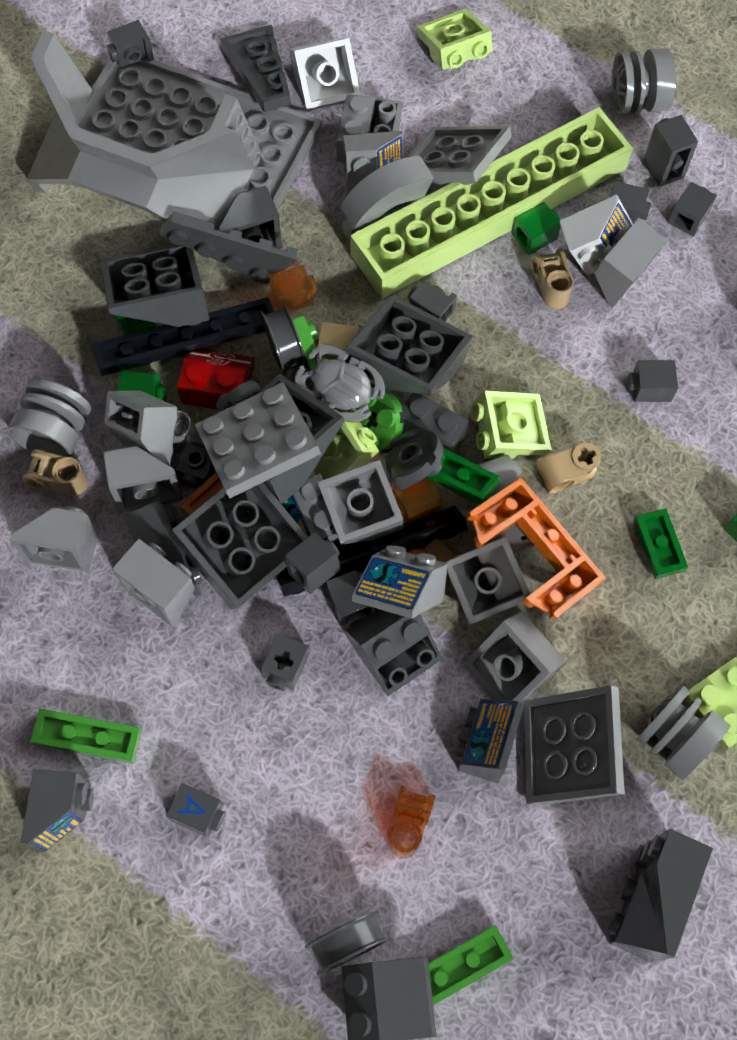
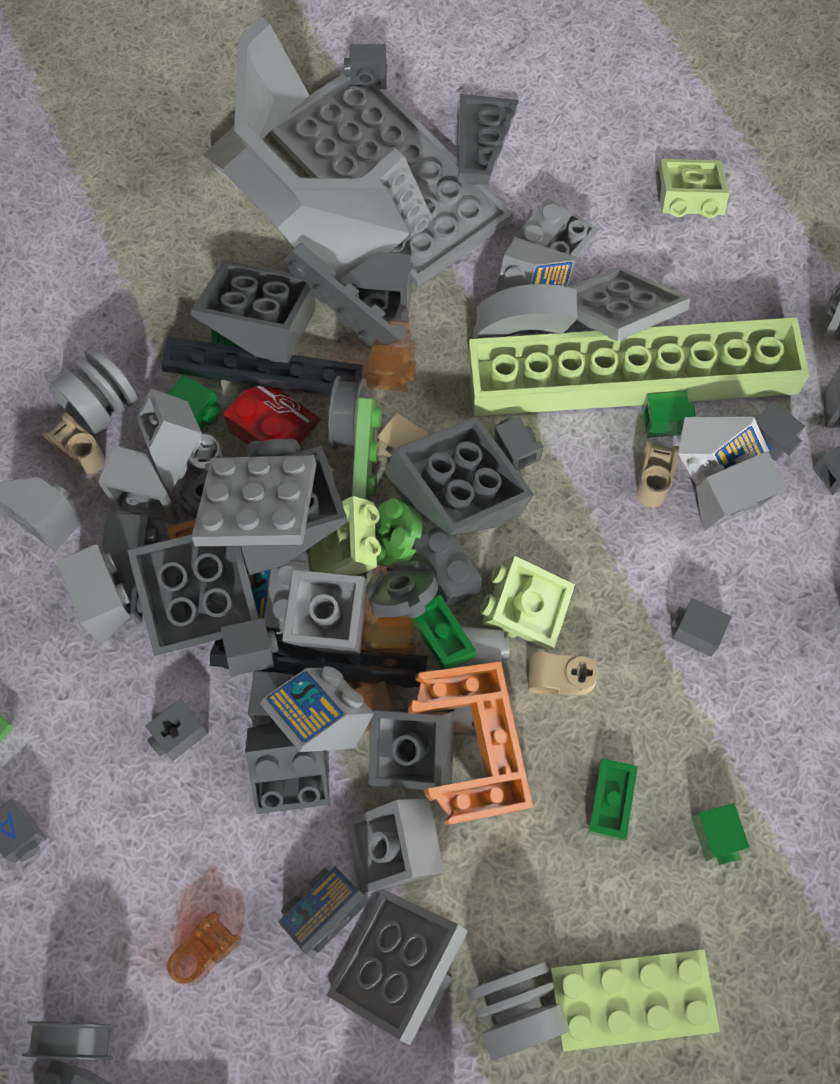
camera: 30 degrees right, 0 degrees up
(325, 72) = (543, 167): white slope -> none
(342, 383) = (371, 483): light grey shield -> none

